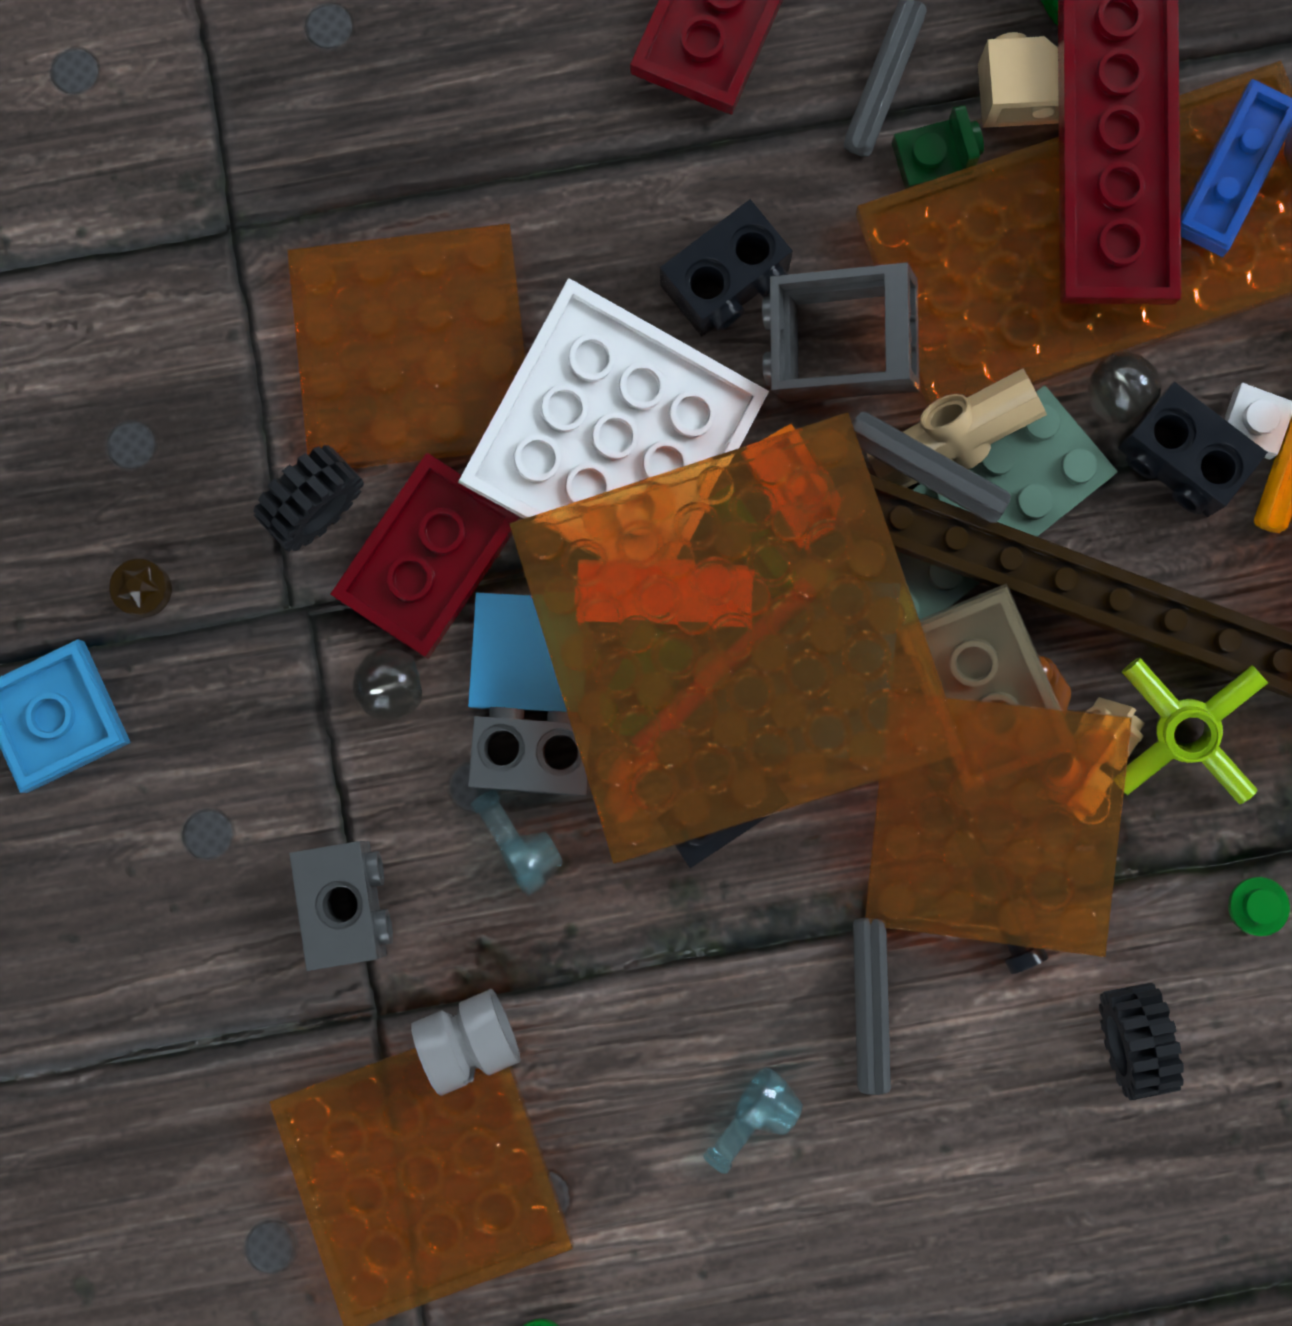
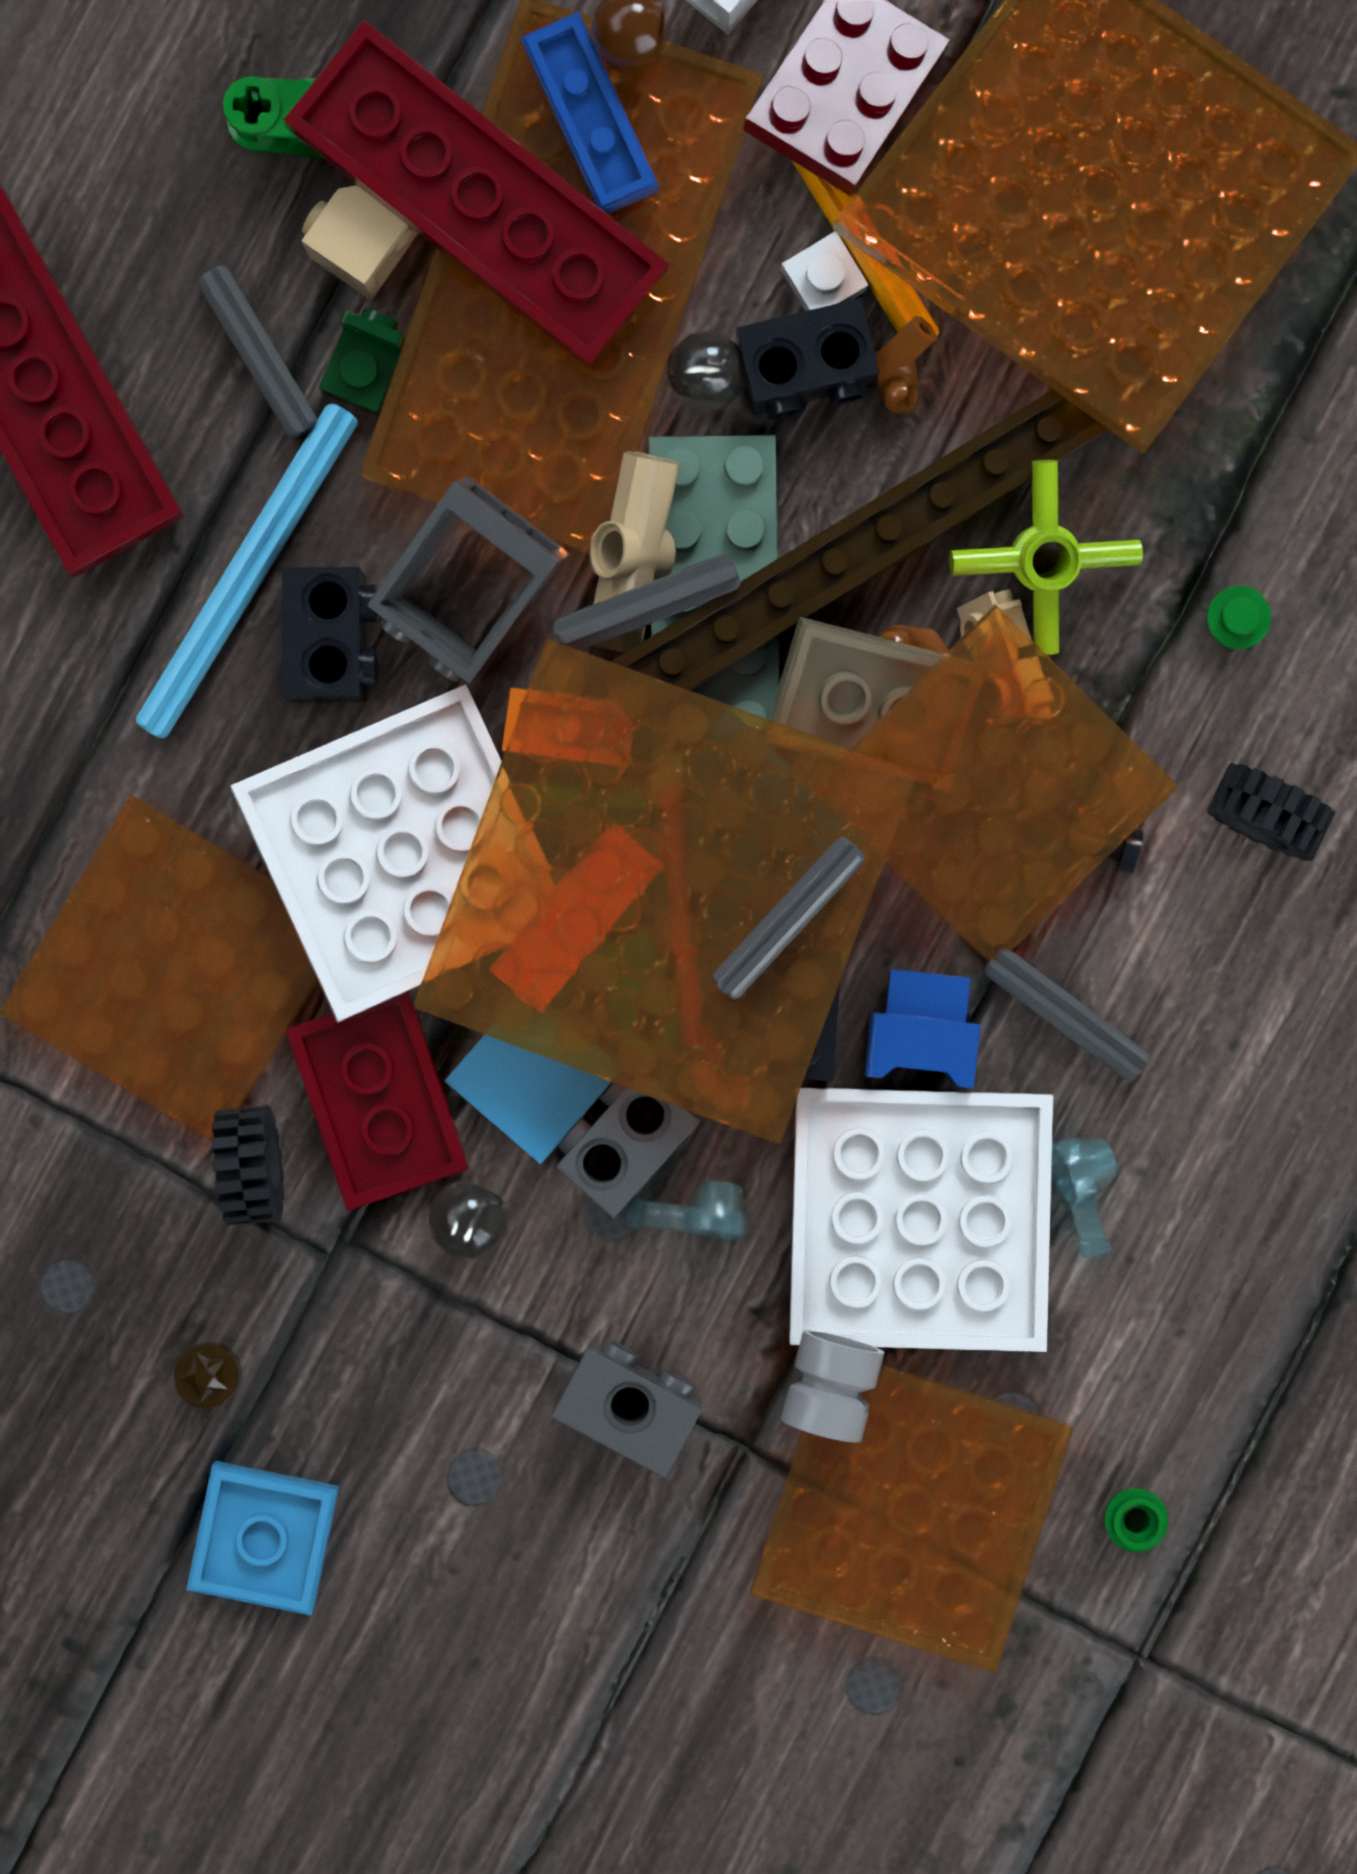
camera: 60 degrees left, 5 degrees up
(641, 1015) = (922, 1218): none -> white plate
(728, 183) = (246, 571): none -> medium azure axle
(780, 907) = (923, 1028): none -> blue piece
(785, 738) = (788, 918): none -> dark grey axle
(1238, 518) = (898, 368): none -> dark orange arm

